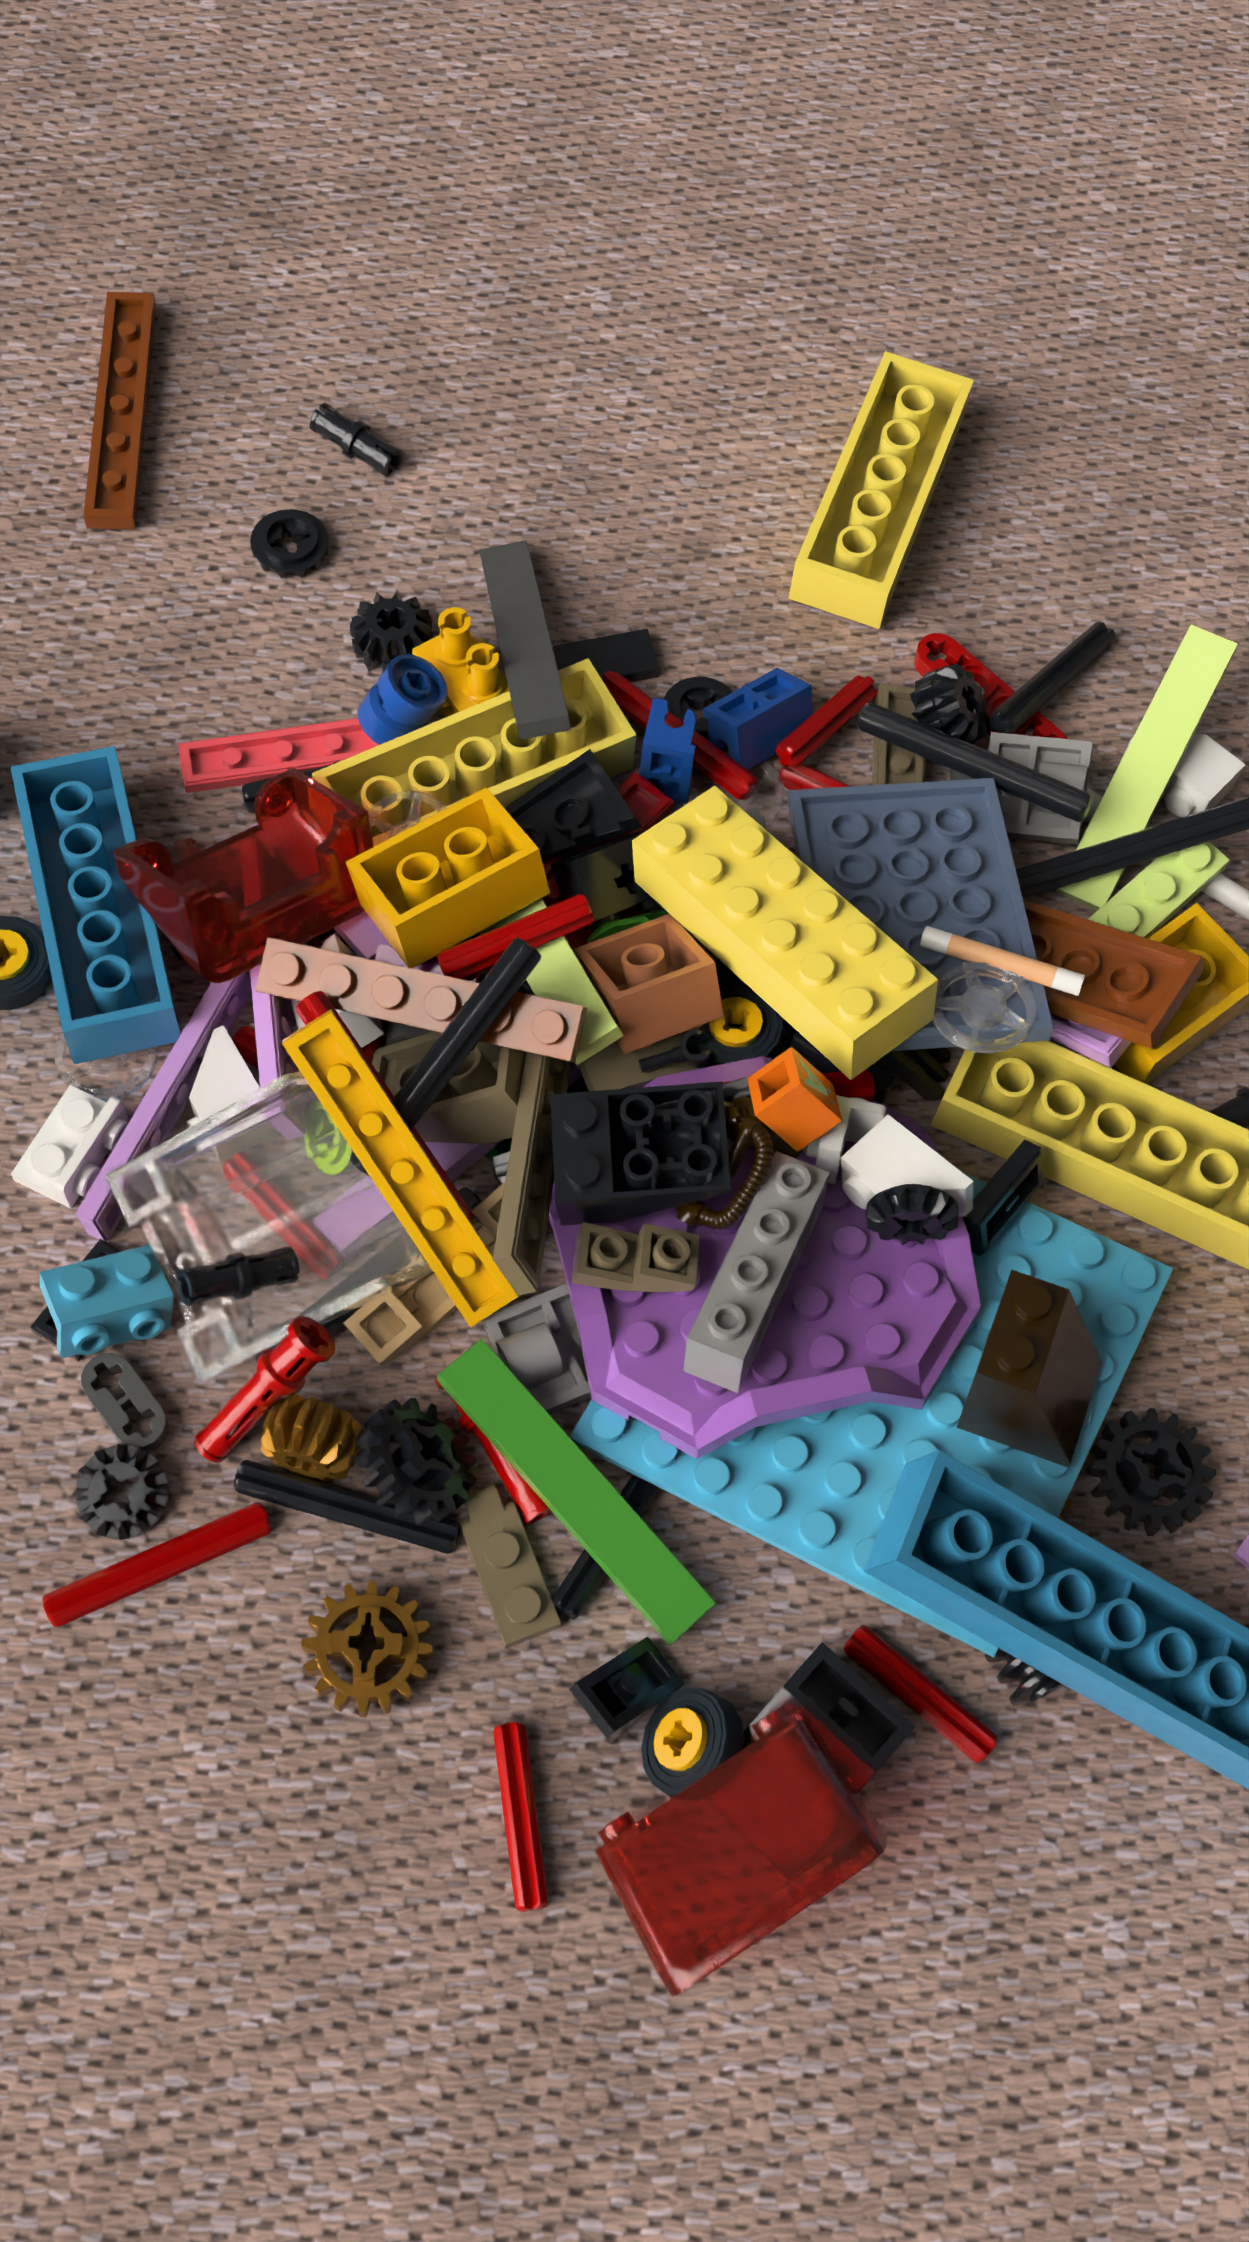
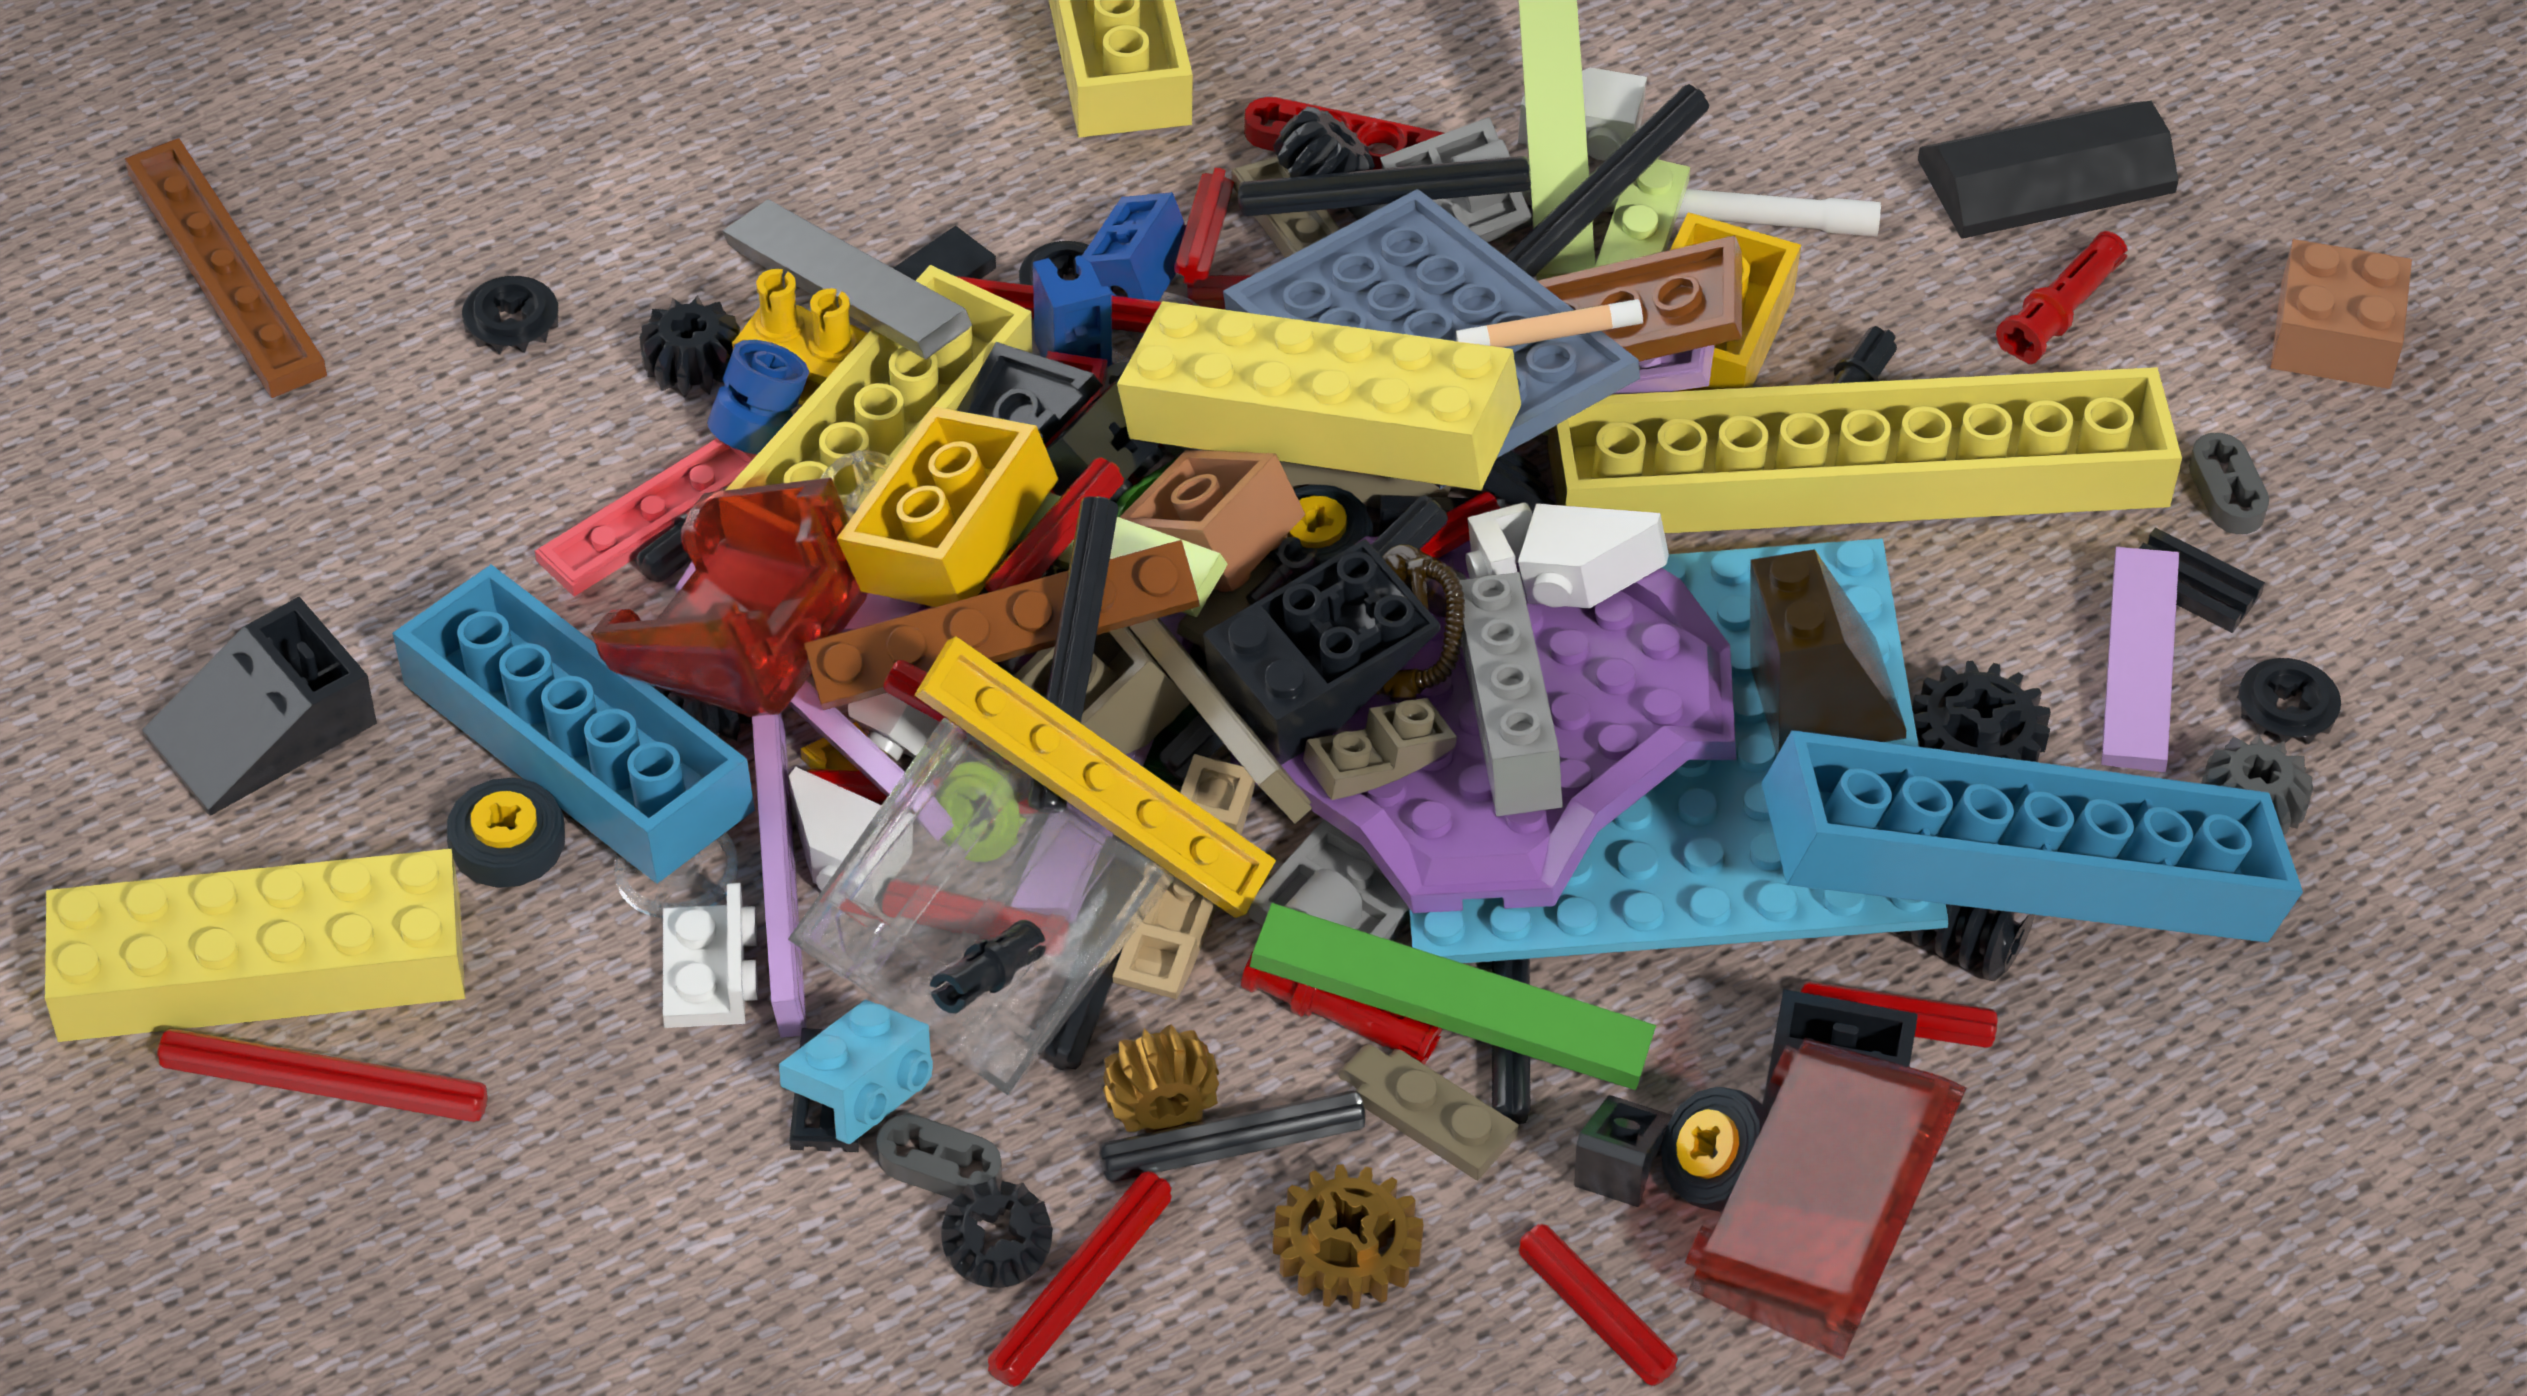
camera: 25 degrees left, 15 degrees down
(278, 1374) = (1096, 1024): red pin -> none
(355, 439) = (508, 186): black pin -> none
(415, 1461) = (1279, 1048): black gear -> none
(794, 1099) = (1443, 525): orange brick -> none
(912, 1213) = (1613, 559): black gear -> none
(984, 1007) = (1565, 371): clear wheel -> none
(1004, 1196) = (1687, 535): black tile -> none
(1052, 679) = (1402, 88): black axle -> none

